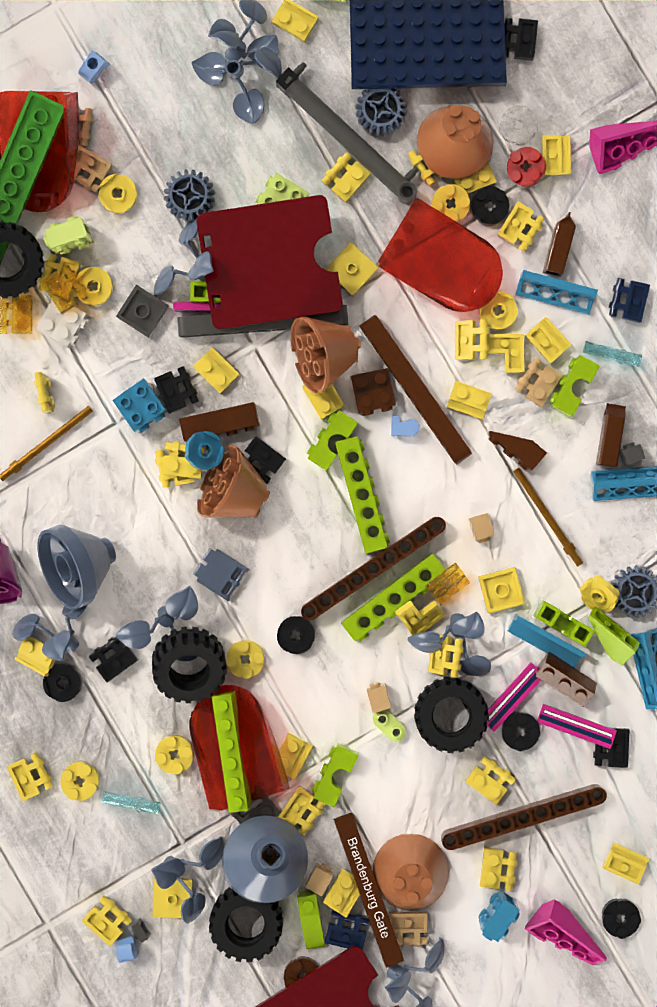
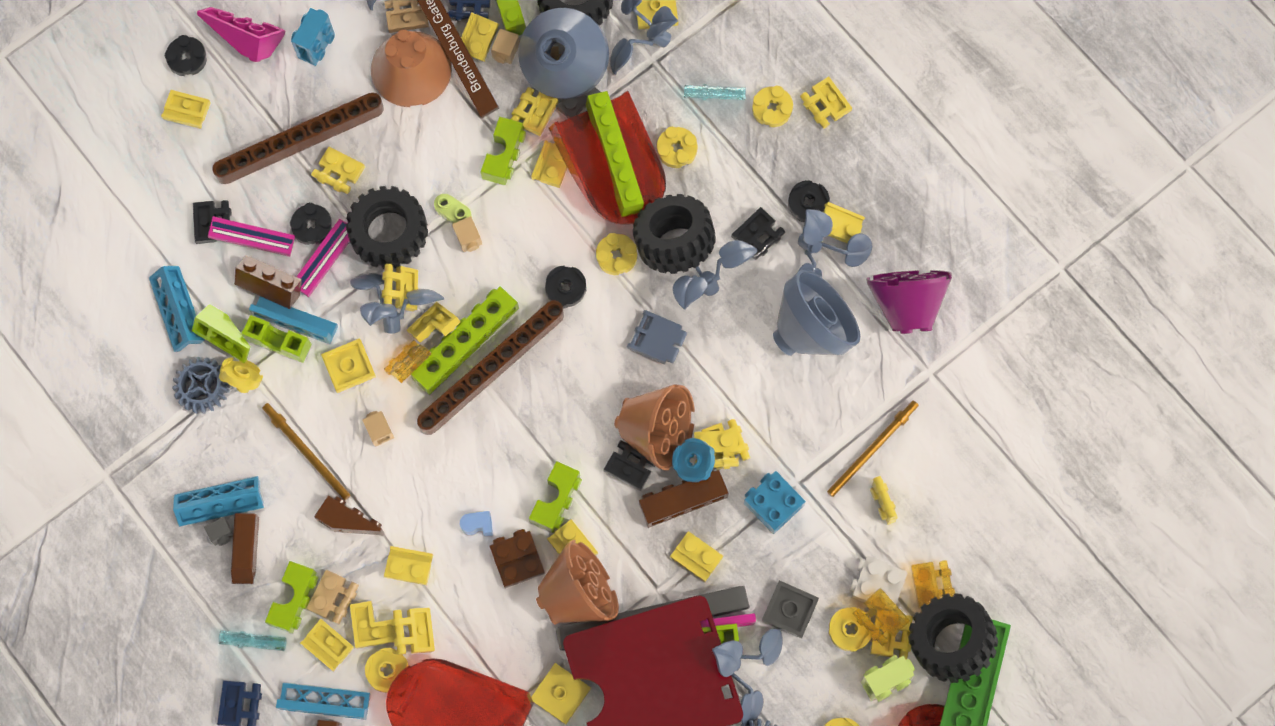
camera: 175 degrees right, 15 degrees down
(170, 392) = (743, 524): black plate -> none
(345, 447) = (494, 393): lime brick -> none
(415, 389) = (470, 568): reddish brown beam -> none
(492, 867) = (326, 84): light yellow plate -> none

